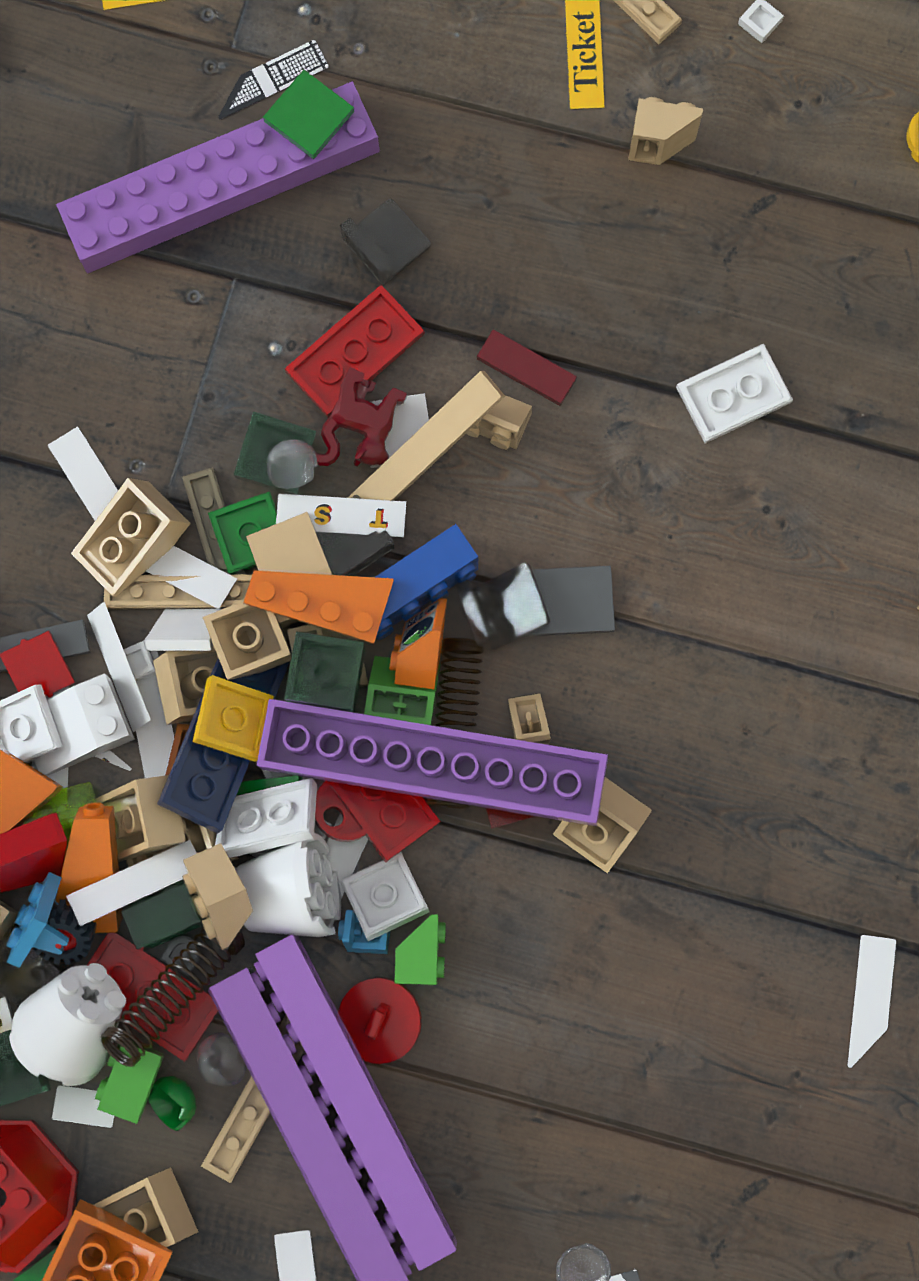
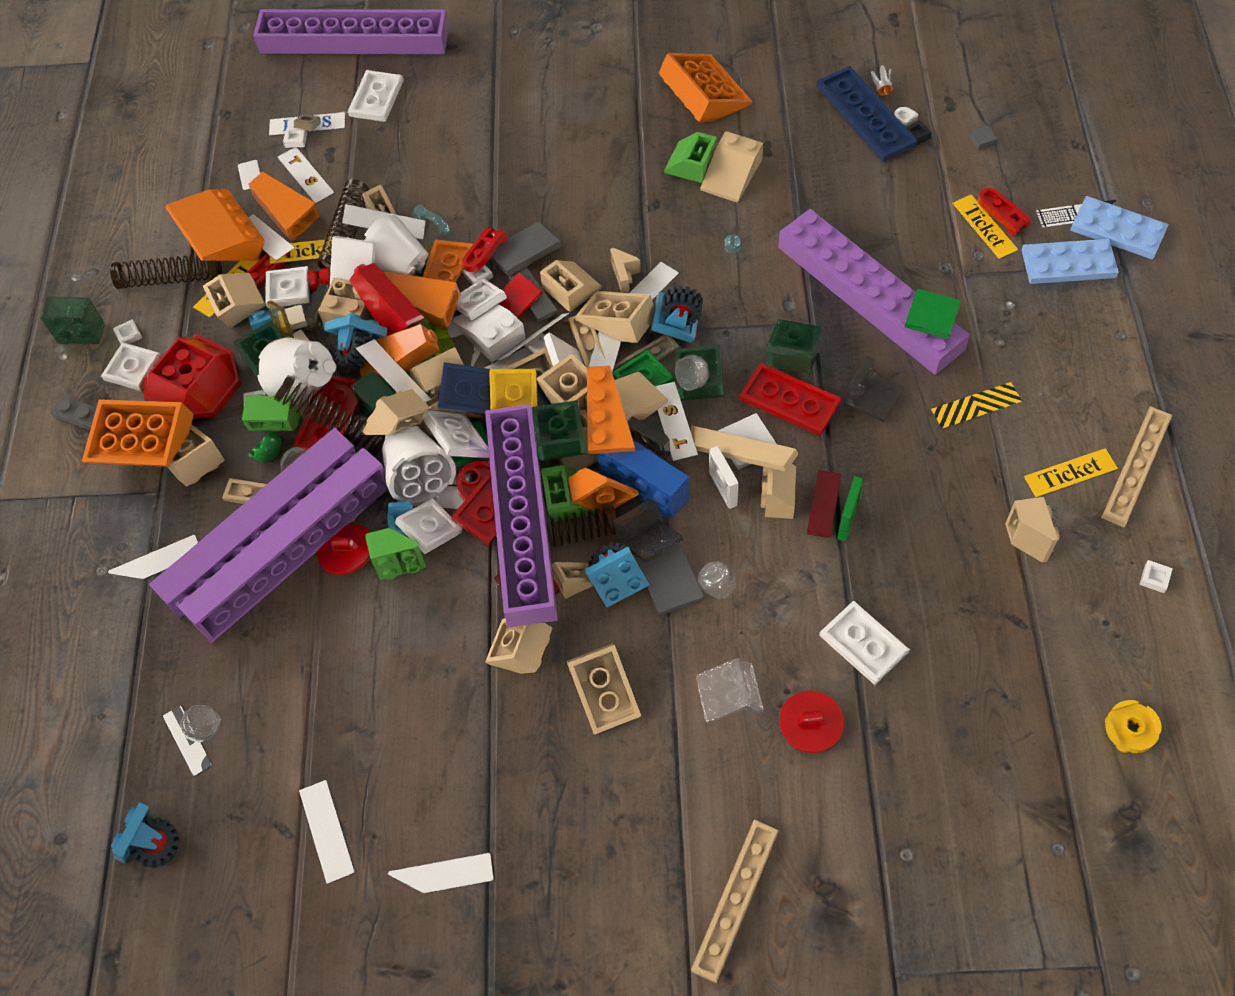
camera: 75 degrees right, 20 degrees down
(40, 502) = (624, 266): none -> tan slope
(46, 586) = (568, 283): none -> tan slope
(54, 339) = (732, 248): none -> clear light blue hinge
(166, 452) = (677, 313): none -> plate
(273, 77) = (967, 310): sticker -> none
(281, 314) = (793, 346): none -> clear green brick
(360, 416) = (745, 405): dark red animal -> none
(445, 119) = (976, 405): none -> sticker
(456, 480) = (723, 477): none -> white tile
(544, 666) = (615, 573): none -> dark azure plate
(558, 337) = (850, 508): none -> green tile
(590, 541) = (717, 579): none -> clear hair
(695, 731) = (603, 688): none -> tan slope
(750, 579) = (729, 690): none -> clear bracket
(771, 1134) = (326, 831): none -> white sticker
(818, 495) = (811, 722): none -> red shield

